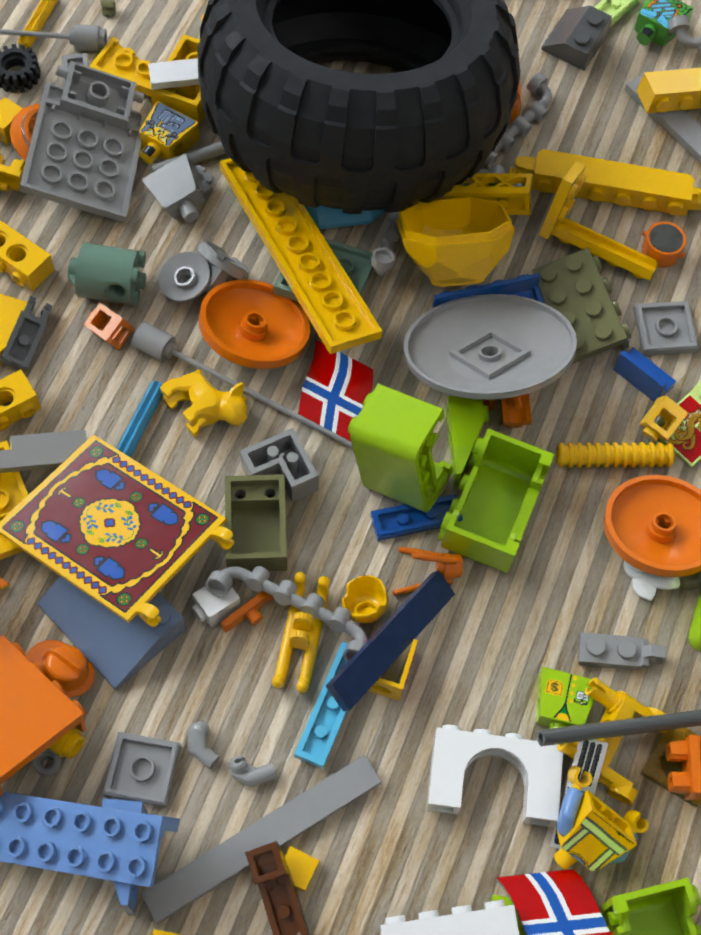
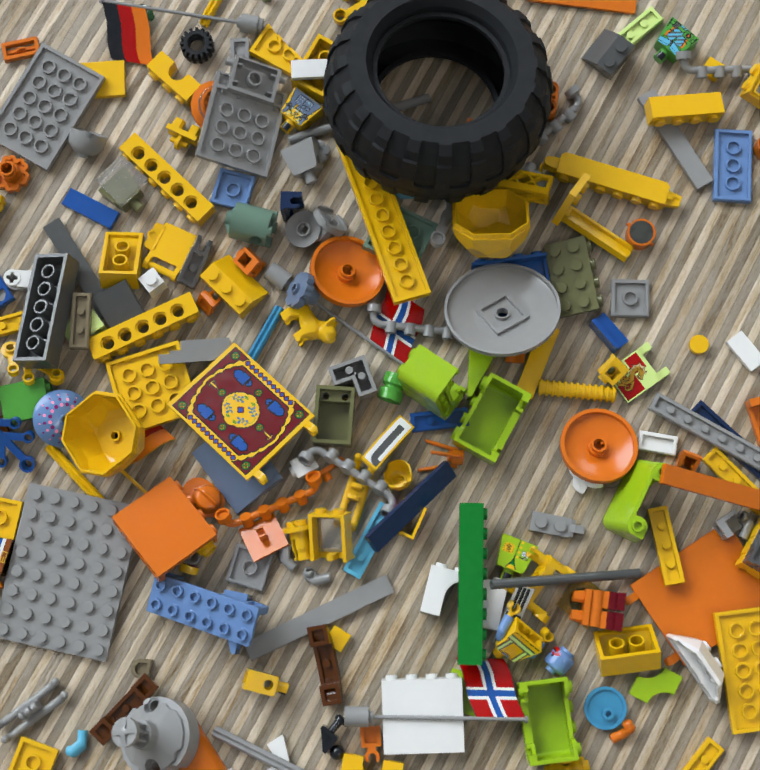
camera: 15 degrees right, 15 degrees up
(41, 781) = (189, 569): none -> yellow tile
(49, 385) = (207, 302): none -> orange tile
(72, 231) = (232, 188): none -> medium blue tile
(86, 361) = (233, 286): none -> yellow slope
(94, 688) = (265, 511): none -> orange bar
(161, 718) = (263, 538): none -> piece
(164, 241) = (289, 201): none -> dark blue hinge
(191, 351) = (302, 291): none -> sand blue plant
(219, 711) = (299, 538): none -> yellow piece
(269, 697) = (330, 534): none -> yellow window
(340, 476) = (392, 390): none -> bright green wheel
(343, 552) = (387, 443): none -> slope
(356, 392) = (408, 328): none -> light grey bar
(505, 752) = (470, 584): none -> green brick
(551, 415) = (536, 364): none -> yellow tile
(665, 860) = (559, 661): none -> medium blue head

